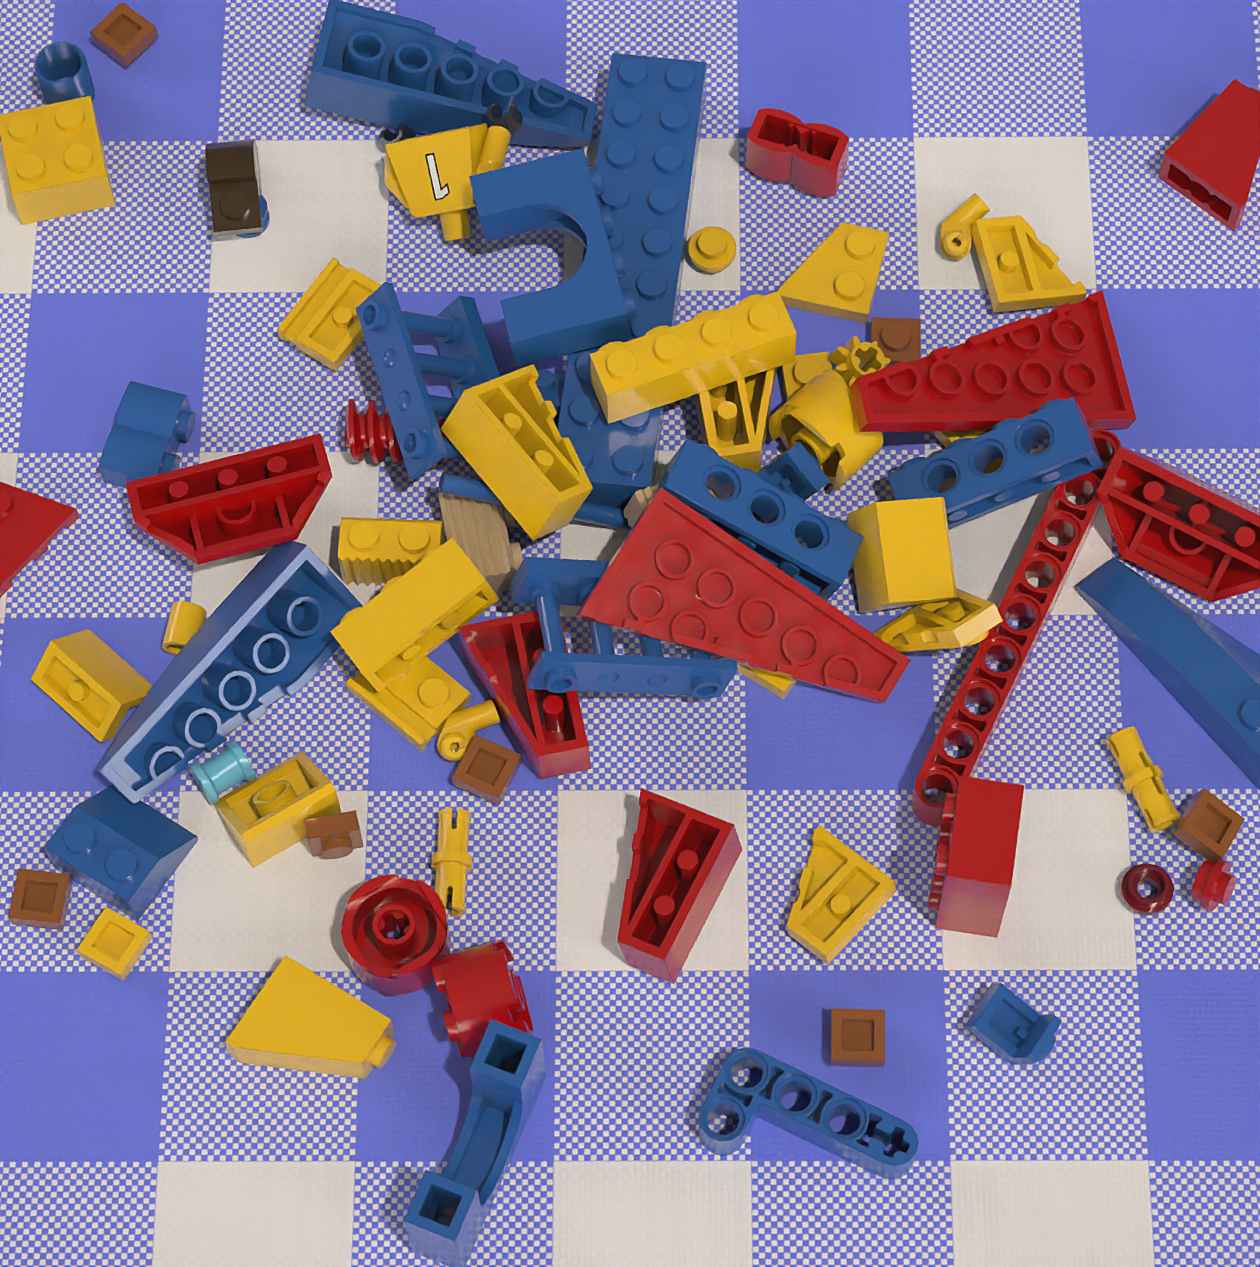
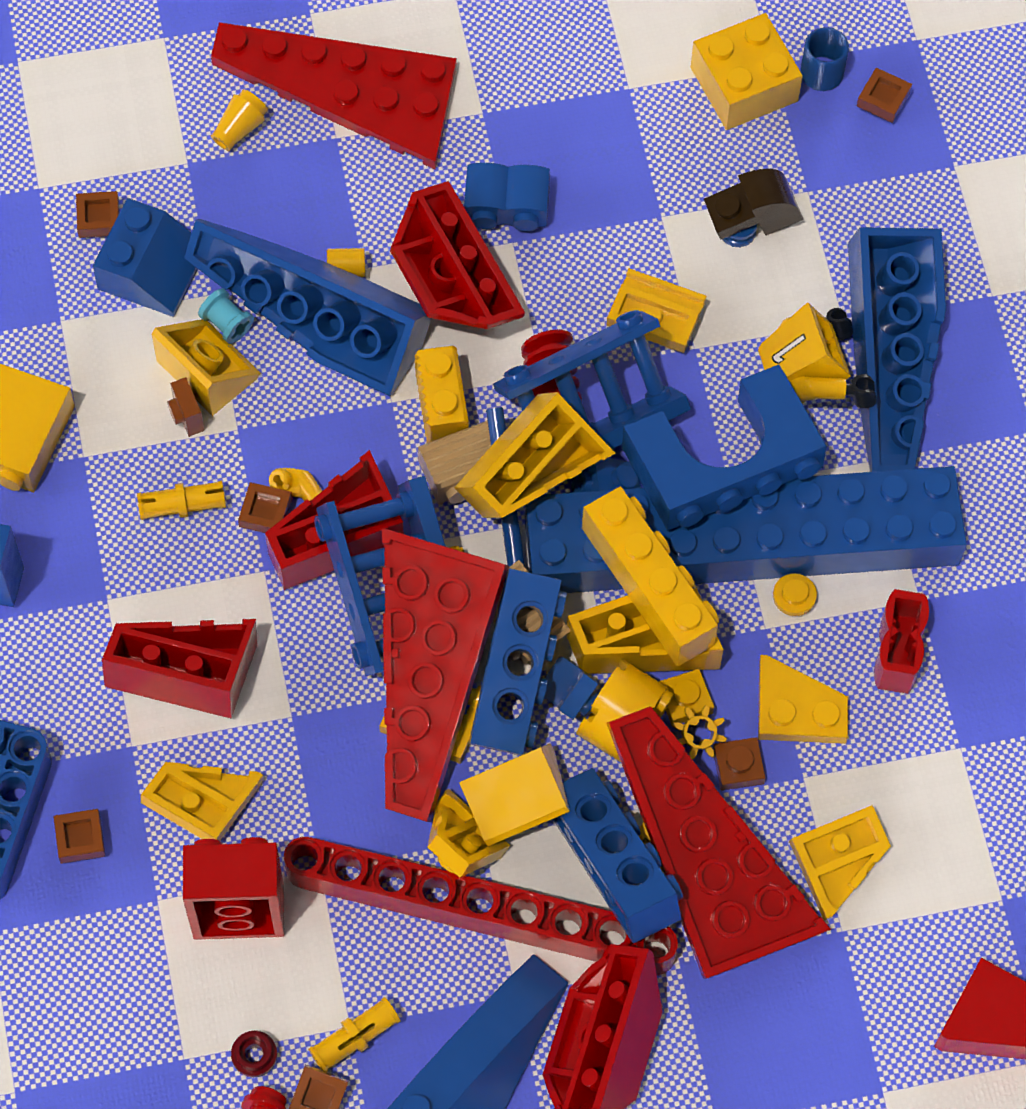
camera: 75 degrees right, 0 degrees up
(90, 682) = (289, 207): yellow panel -> none
(114, 943) = (69, 273): yellow plate -> none
(410, 909) = (104, 466): red brick -> none
(414, 614) = (376, 416): yellow brick -> none
(415, 701) = (327, 438): yellow plate -> none
(479, 990) = (58, 540): red brick -> none
(956, 228) = (864, 794): yellow arm -> none
(1012, 1026) = (106, 956): blue bracket -> none

